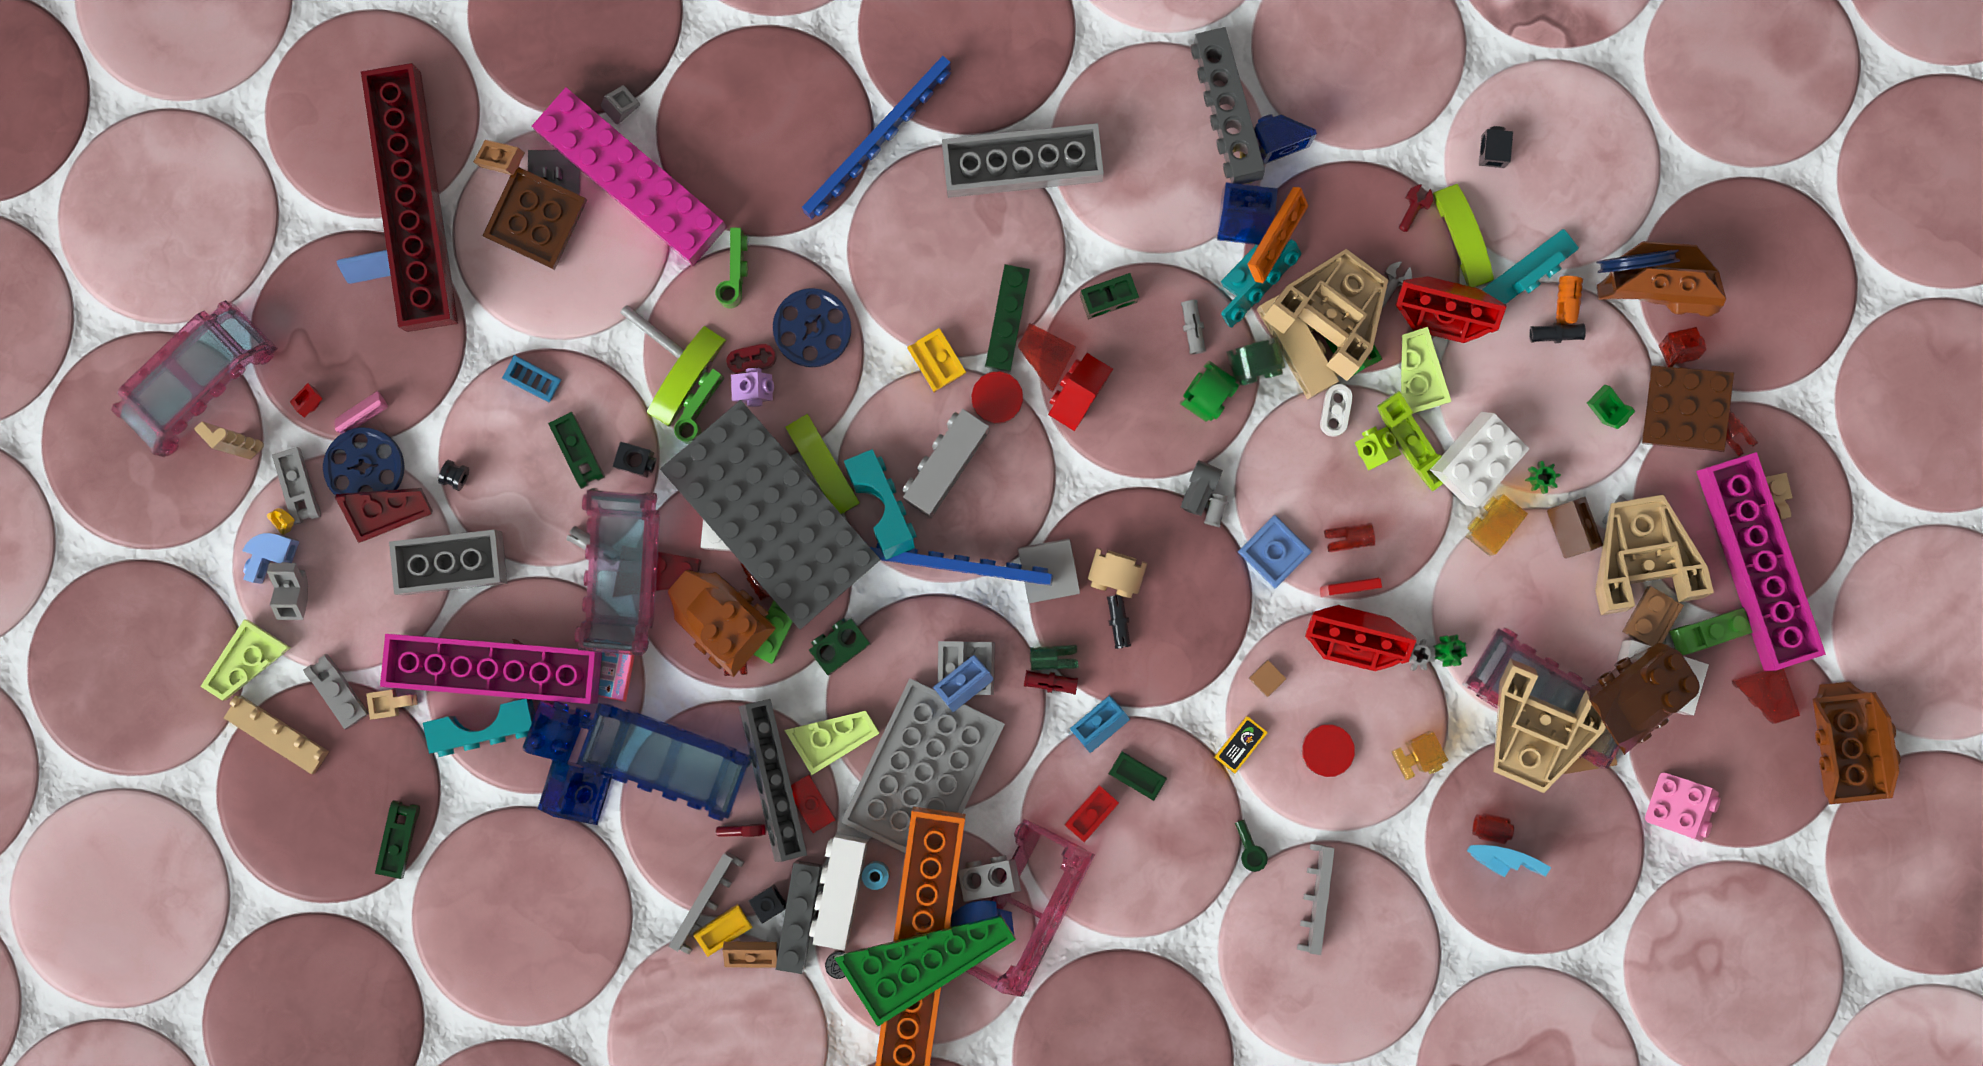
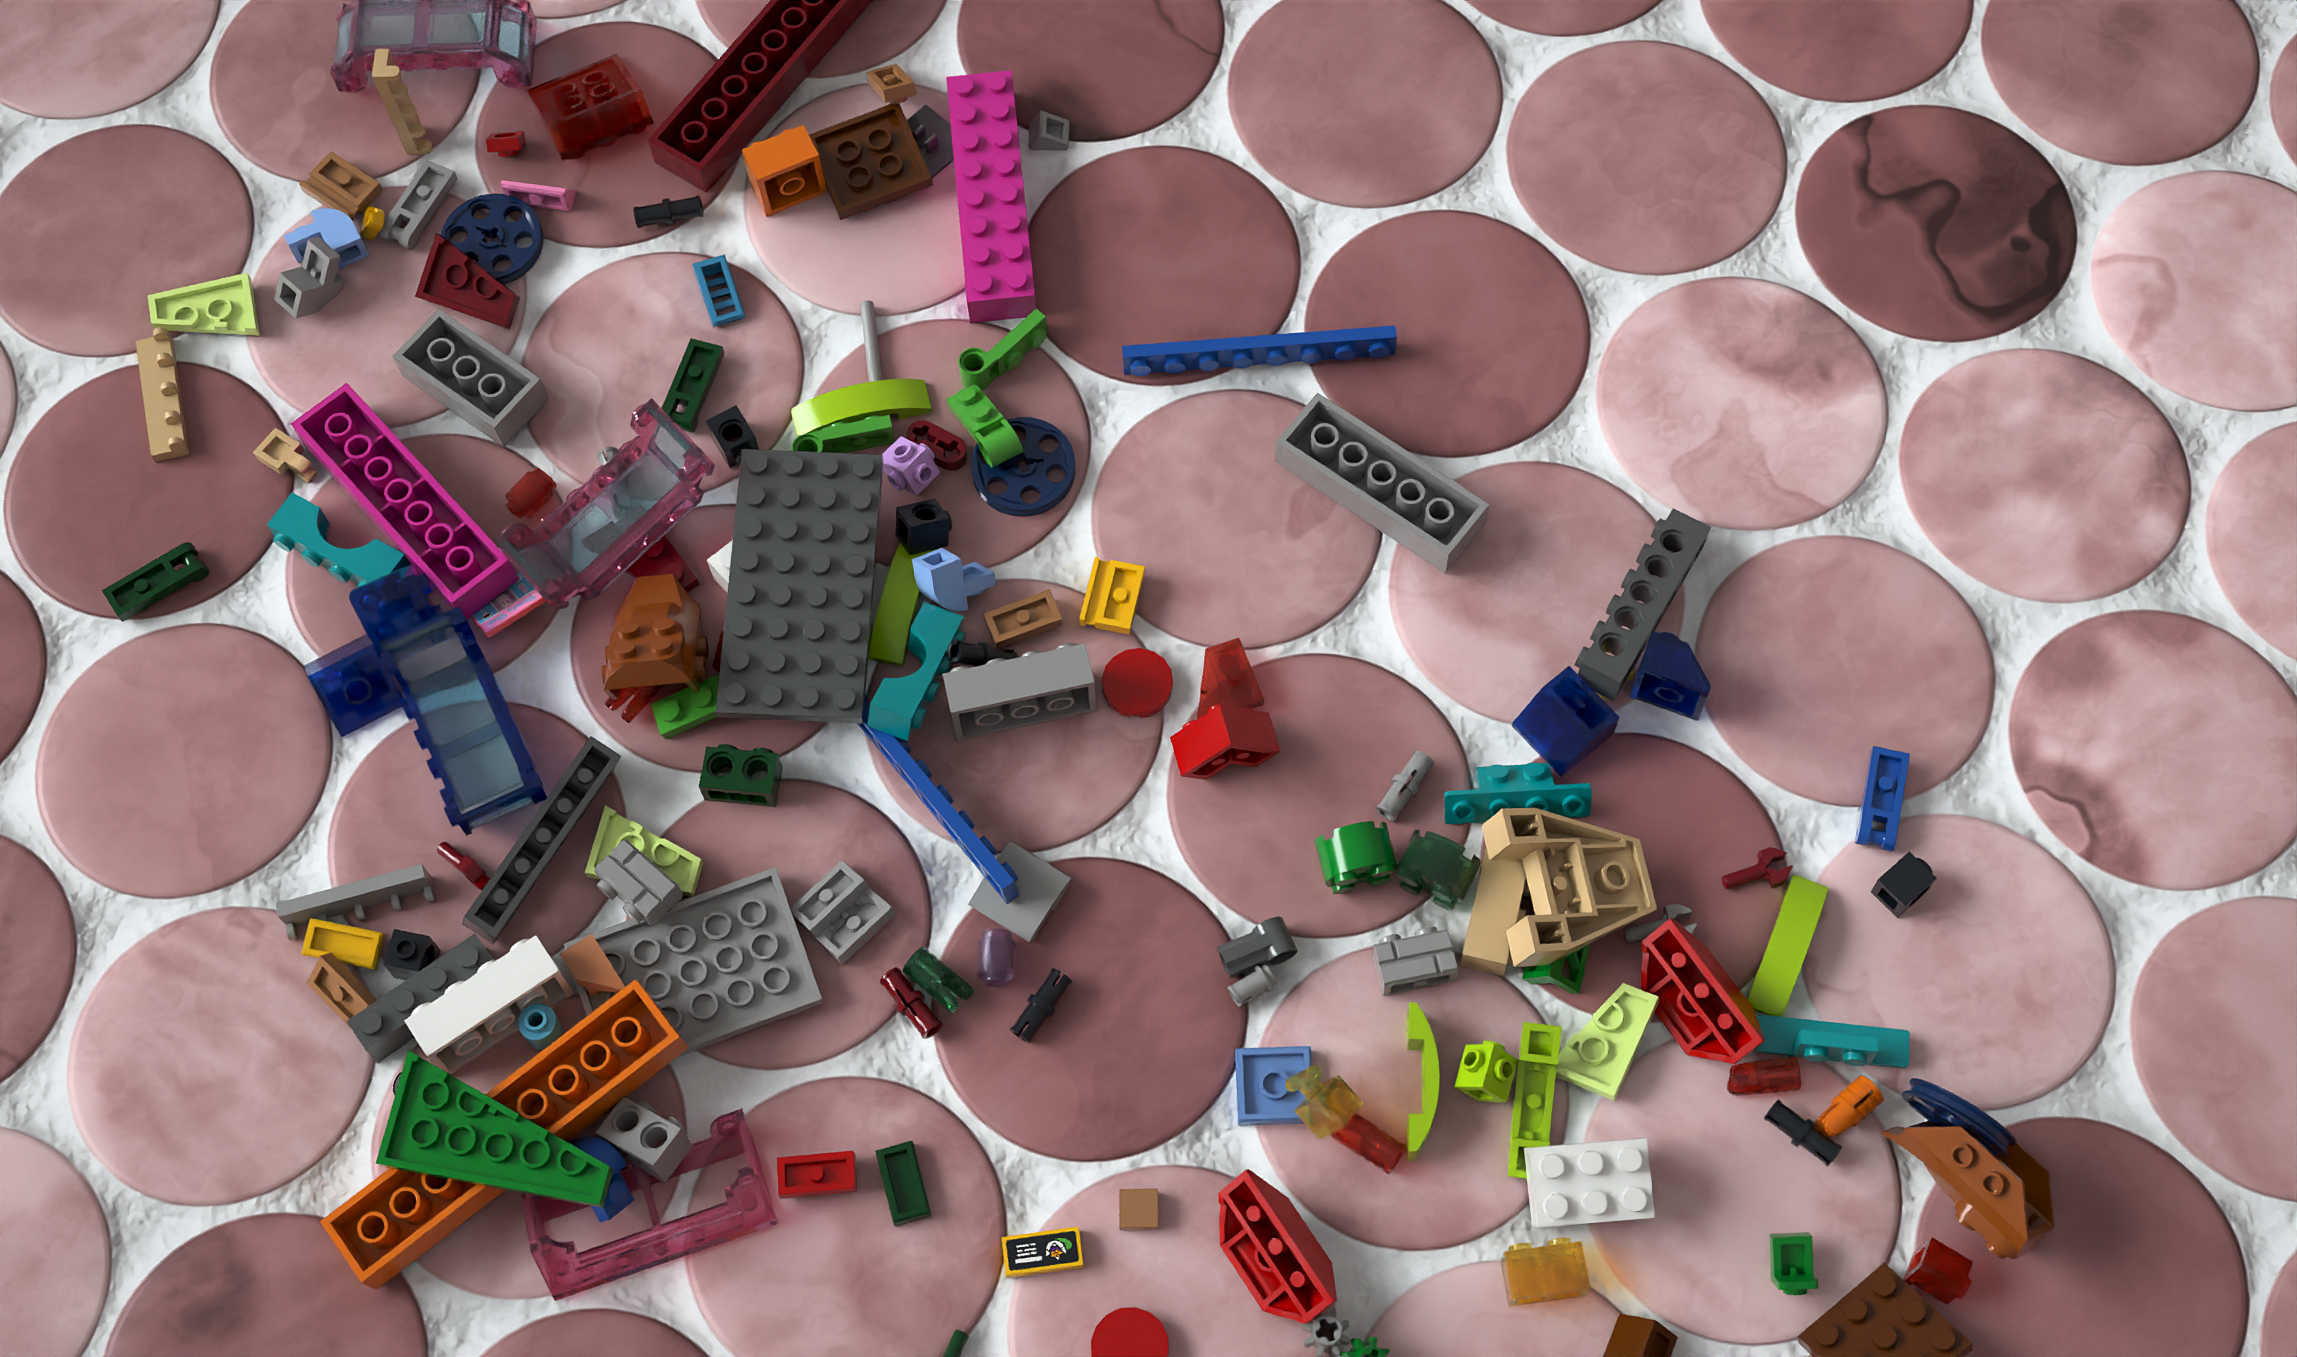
camera: 45 degrees right, 20 degrees down
(237, 516) = (341, 186): none -> medium nougat plate
(331, 331) = (591, 107): none -> clear red slope
(336, 692) = (253, 406): light grey plate -> none
(365, 267) = (673, 75): medium blue slope -> none
(450, 356) = (668, 211): none -> black pin
(453, 475) = (560, 311): black wheel -> none
(495, 271) = (784, 170): none -> orange brick
(554, 597) = (530, 494): none -> clear red brick
(769, 324) = (985, 424): none -> bright green plate
(796, 416) = (922, 526): none -> black brick
(811, 804) = (556, 904): red plate -> none
(844, 435) = (946, 582): none -> light blue brick
(850, 756) = (637, 883): none -> light grey brick
(872, 821) = (591, 967): none -> nougat slope
(901, 418) = (1023, 619): none -> medium nougat plate
(905, 462) = (976, 654): none -> black pin
(963, 683) = (821, 919): medium blue slope -> none
(1007, 318) = (1223, 618): dark green plate -> none
(1072, 618) = (996, 957): none -> clear purple brick
(1100, 724) = (918, 1095): dark azure slope -> none
(1109, 296) = (1344, 678): dark green brick -> none
(1116, 572) = (1084, 949): tan brick -> none
(1278, 235) = (1577, 764): orange tile -> none
(1287, 421) = (1414, 961): none -> light grey brick
(1314, 540) = (1326, 1104): none -> clear yellow brick
(1336, 411) = (1477, 999): white plate -> none
(1350, 587) = (1316, 1186): red tile -> none
(1370, 508) = (1421, 1038): none -> lime slope
(1443, 106) = (1882, 797): none -> blue plate
(1515, 319) = (1765, 1077): none -> clear red hinge
(1548, 471) = (1638, 1262): green gear -> none

